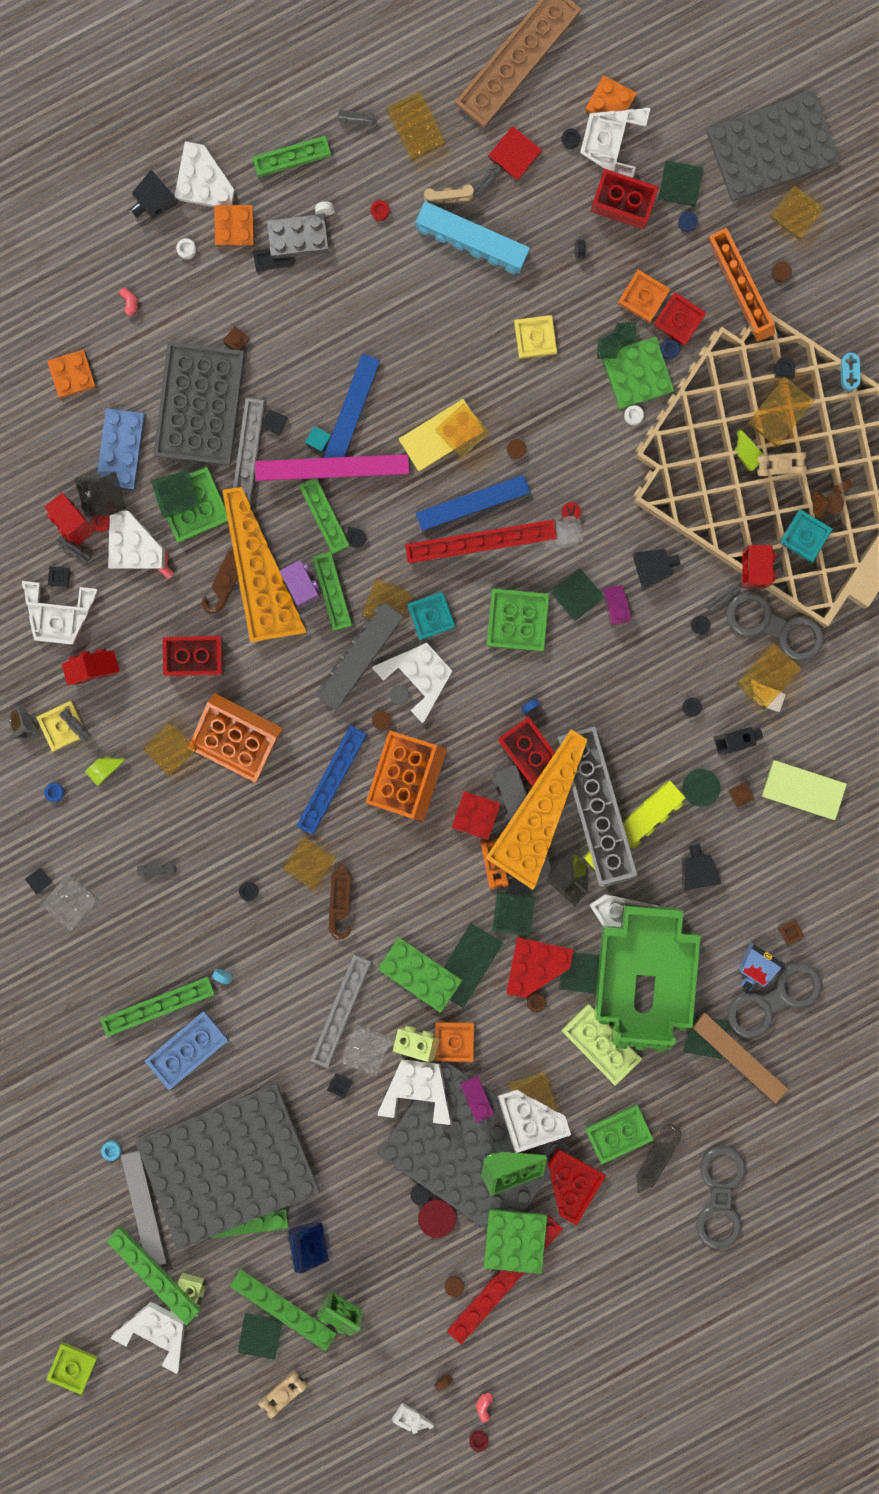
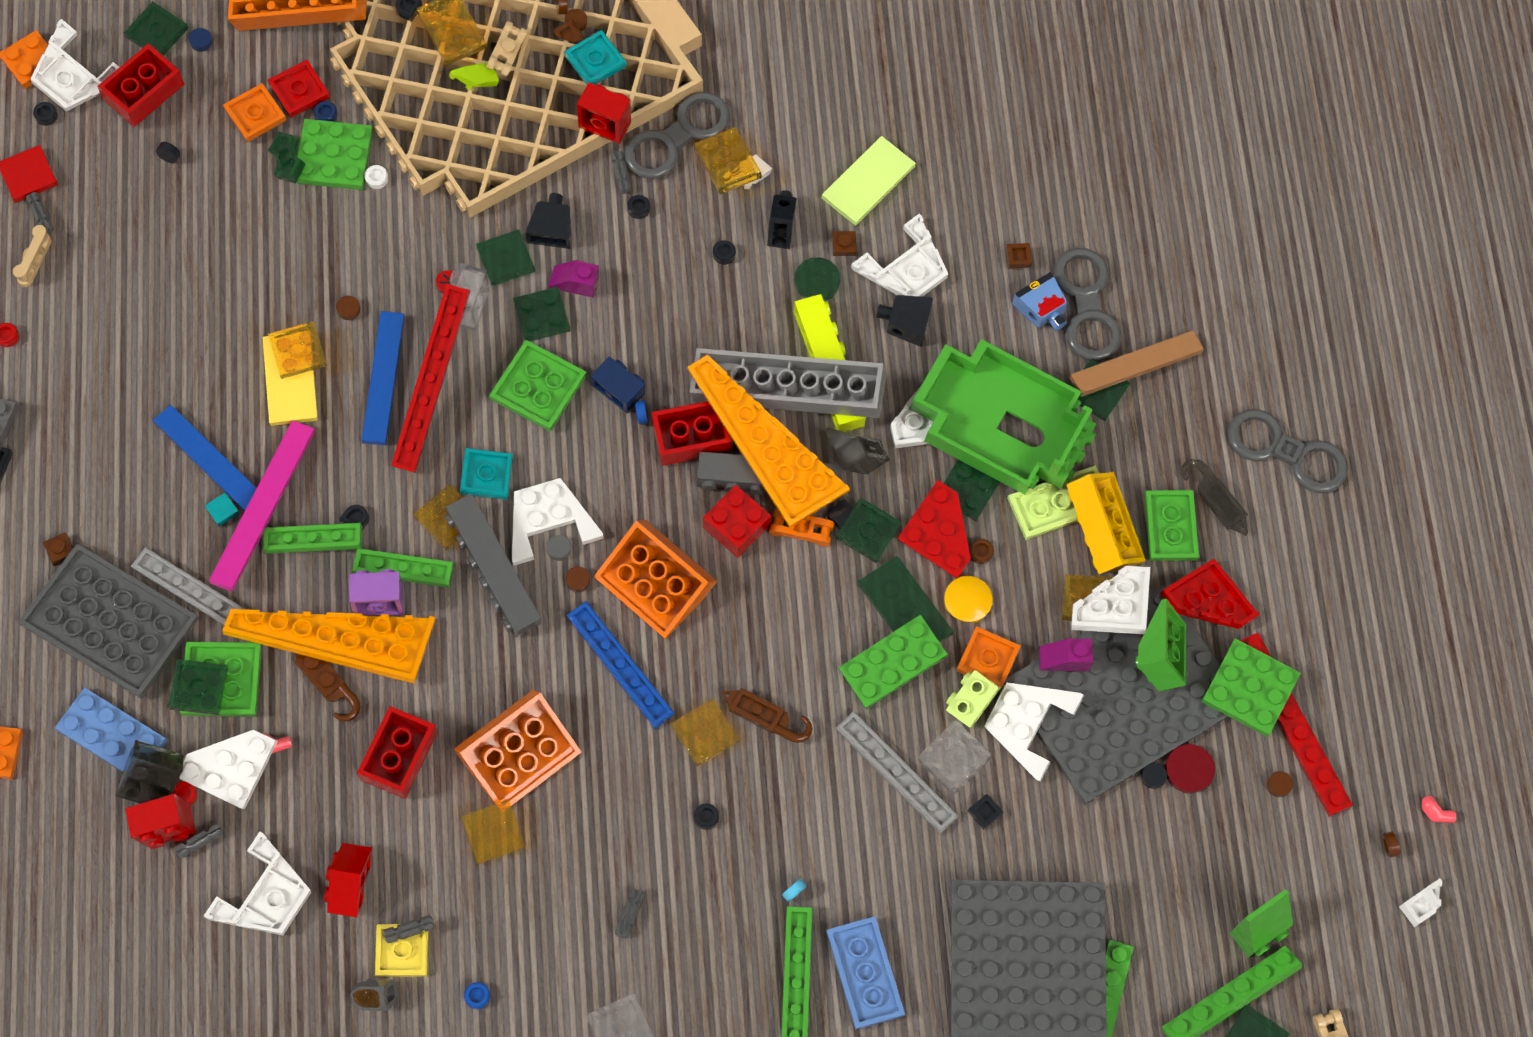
camera: 70 degrees left, 20 degrees down
(58, 576) = (221, 873): black tile -> none
(103, 768) = (477, 921): lime slope -> none
(274, 422) = (176, 548): black tile -> none
(307, 1246) = (1164, 931): clear blue brick -> none
(471, 237) = (92, 252): medium azure brick -> none
(478, 1440) = (1477, 836): dark red tile -> none
(494, 1008) = (968, 599): none -> yellow dish
(535, 337) = (236, 237): light yellow tile -> none
(545, 679) = (618, 384): none -> dark blue brick
(596, 1086) = (1105, 522): none -> yellow slope
(611, 545) = (505, 257): none -> clear green tile
(741, 858) = (911, 273): none -> white wing

